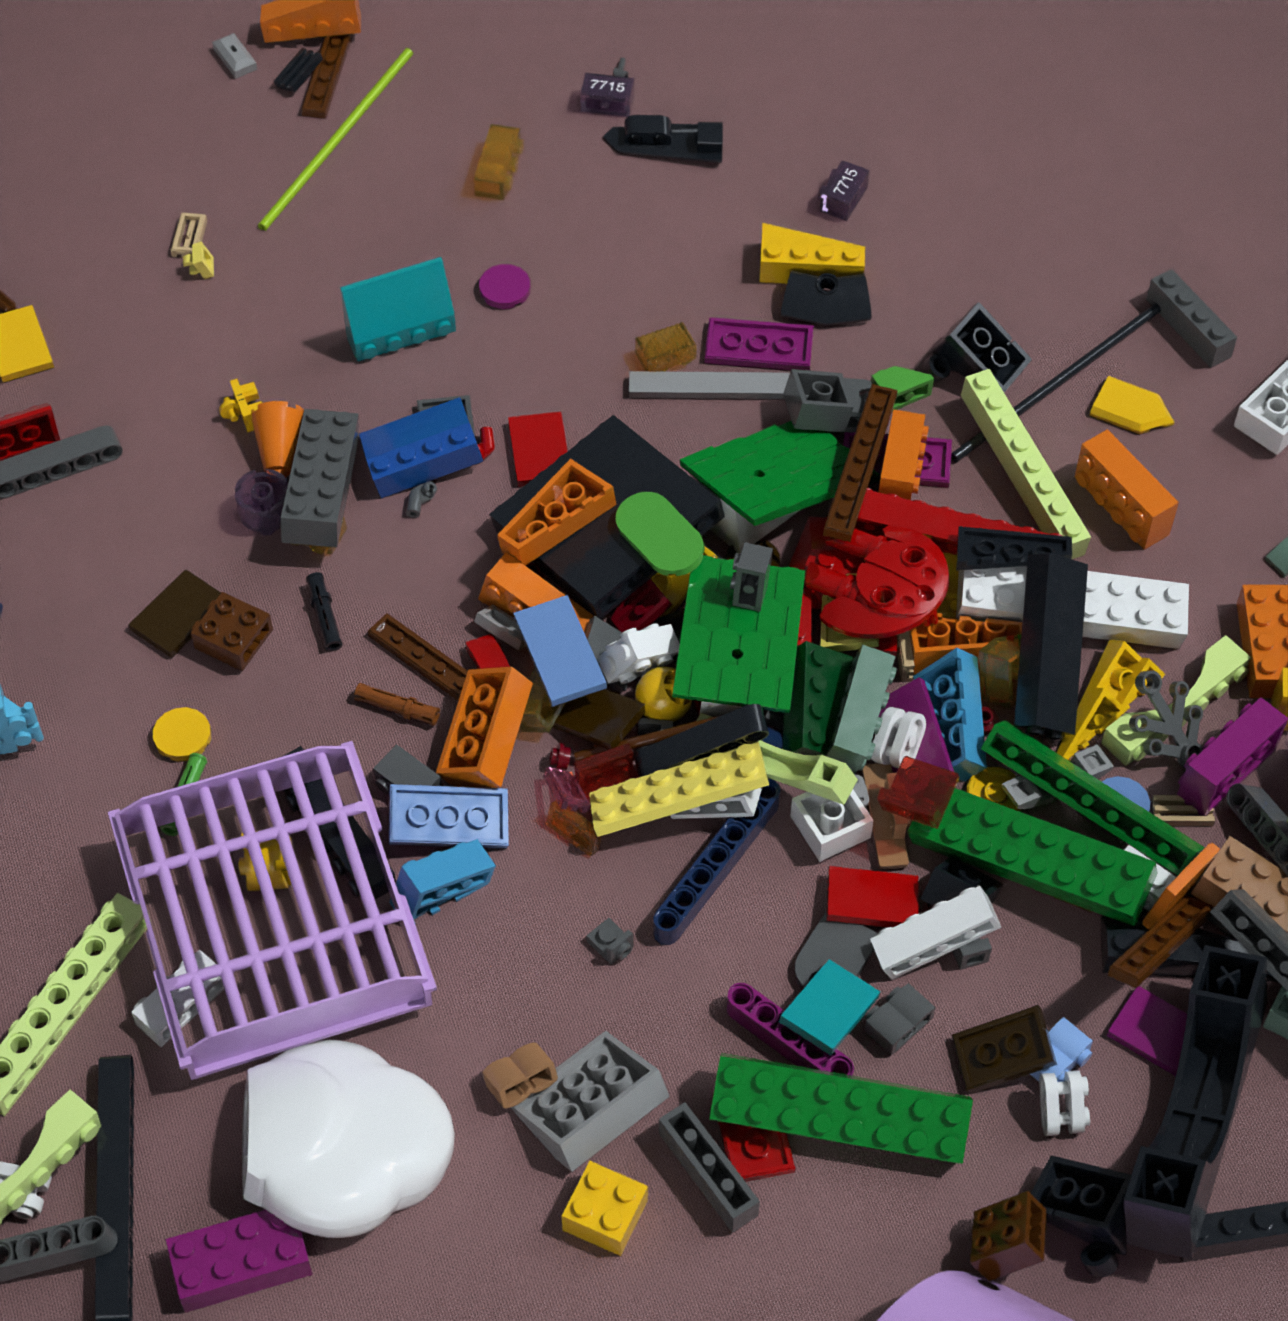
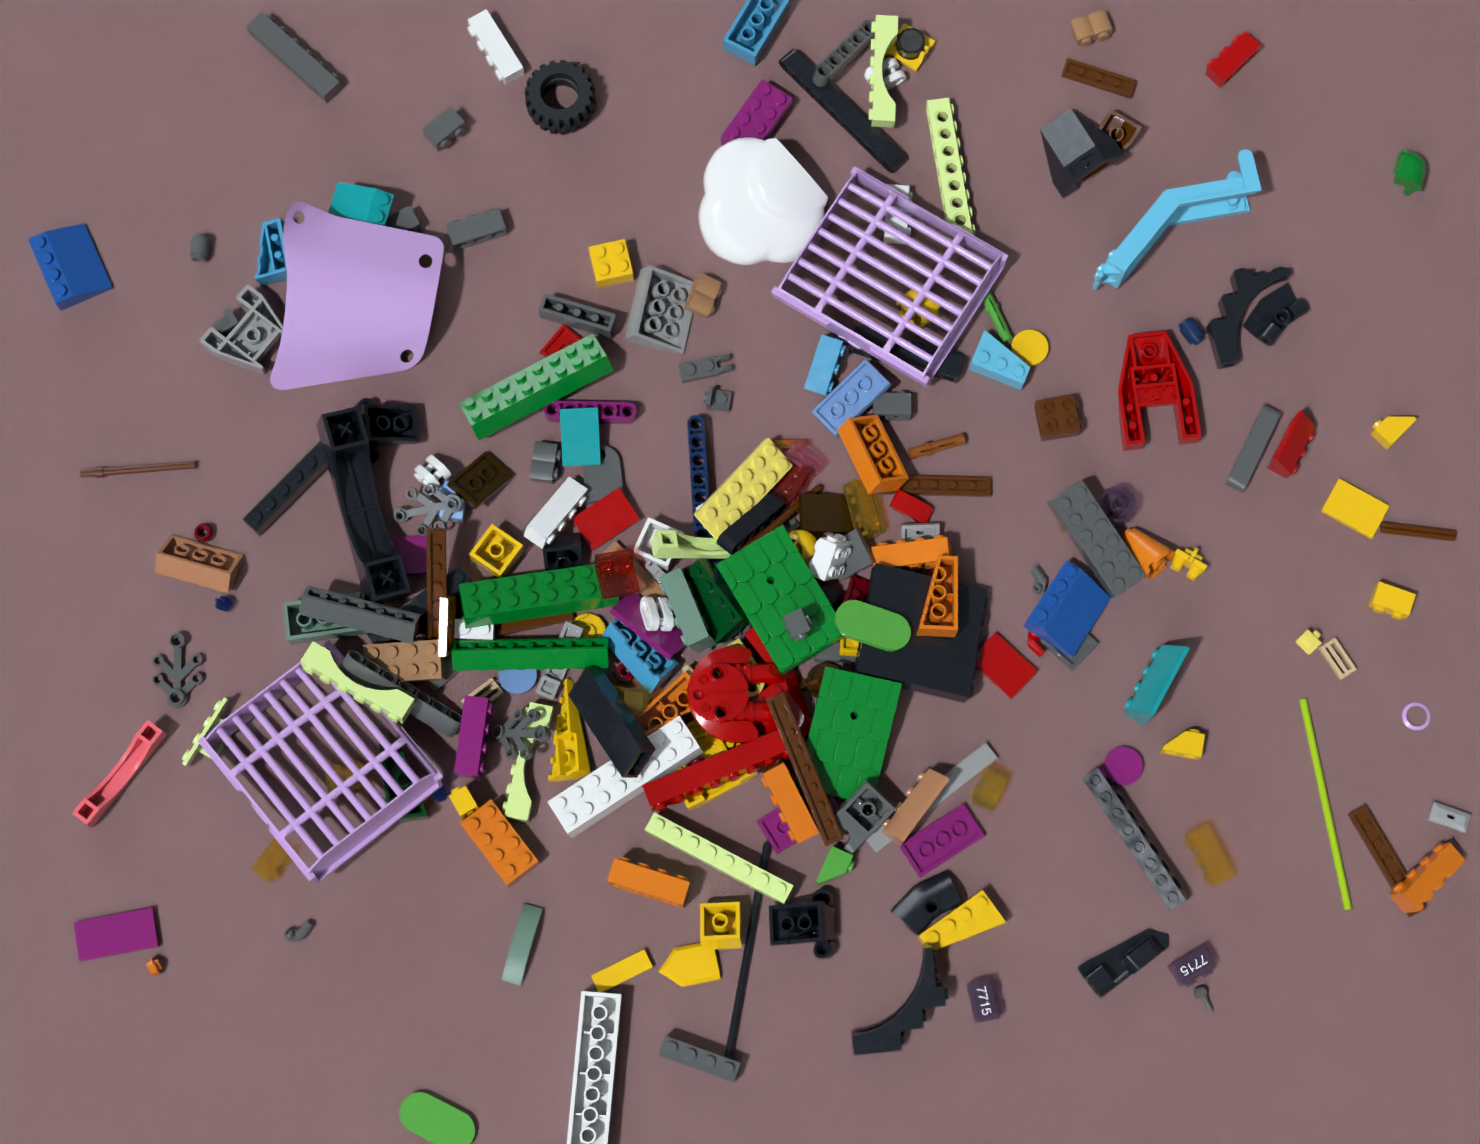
camera: 140 degrees right, 20 degrees up
(79, 240) = (1391, 601): none -> yellow brick
(86, 586) = (1154, 378): none -> red wedge
(169, 158) = (1406, 721): none -> lavender piece
(171, 615) = (1098, 412): dark brown tile -> none
(235, 732) = (998, 362): none -> medium azure wedge
(298, 70) = (1400, 834): black tile -> none
(317, 586) = (1030, 474): black pin -> none
(421, 249) = (1186, 745): none -> yellow slope
(556, 216) = (1136, 838): none -> black brick
(560, 650) = (871, 524): medium blue tile -> none
(560, 757) = (826, 478): dark red plate -> none
(594, 992) = (704, 368): none -> dark grey hinge
(760, 366) = (915, 806): none -> nougat slope
(936, 217) = (926, 994): none -> black arch
(1001, 549) = (679, 763): black wing -> none
(1008, 1236) = (411, 380): reddish brown brick -> none
(1046, 947) = (496, 552): none -> yellow brick
(1072, 1036) = (430, 507): none -> plant
(1074, 404) = (720, 925): none -> yellow brick
(1217, 446) = (621, 971): none -> yellow tile

